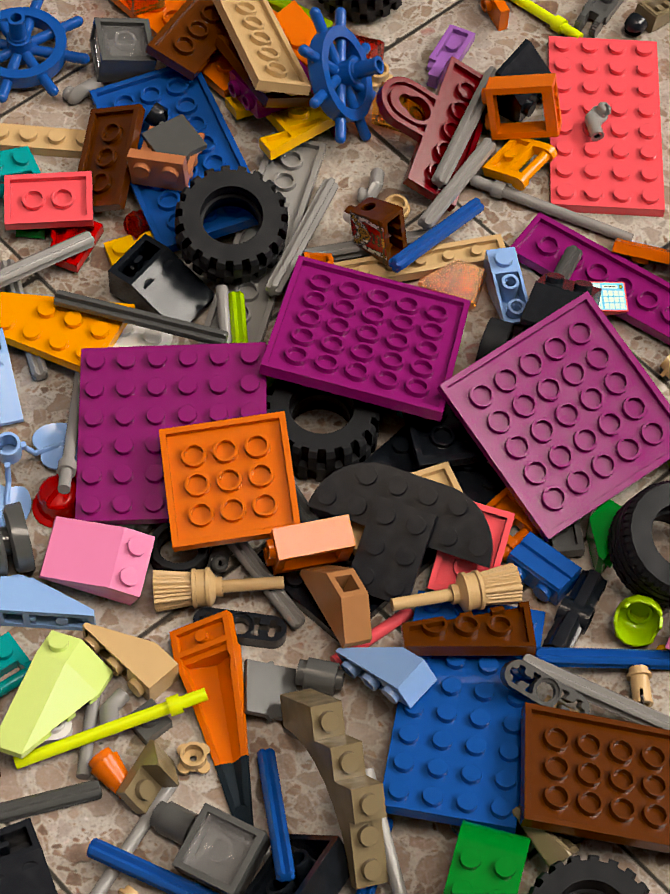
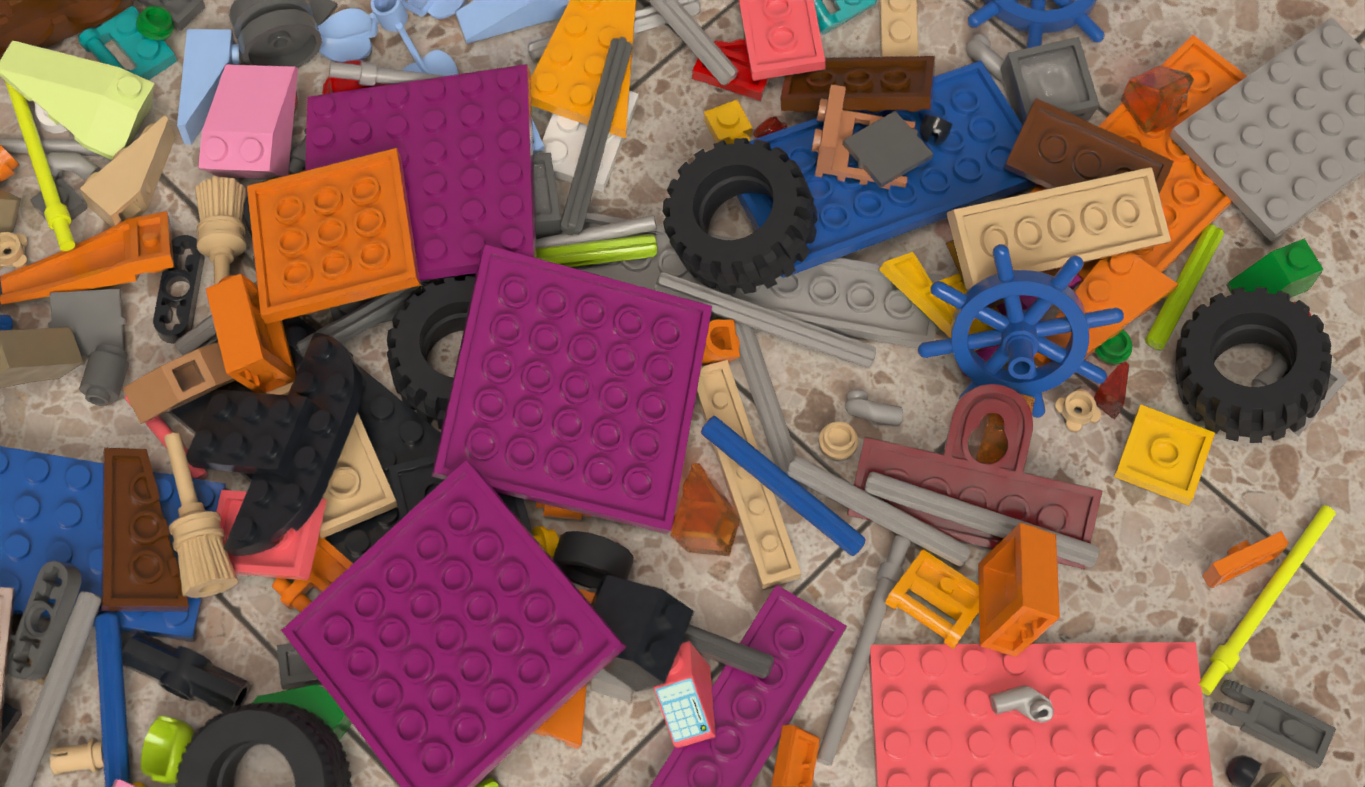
camera: 85 degrees right, 10 degrees up
(158, 281) = (661, 147): black slope -> none
(377, 228) = (779, 392): reddish brown torso -> none
(393, 670) = (76, 441): light blue slope -> none
(414, 32) = (1164, 455): none -> yellow plate
(453, 43) = (1136, 502): medium lavender hinge -> none
(505, 283) = (707, 578): light blue slope -> none
(523, 61) = (1088, 594): black slope -> none
(544, 569) = (251, 632): blue brick -> none

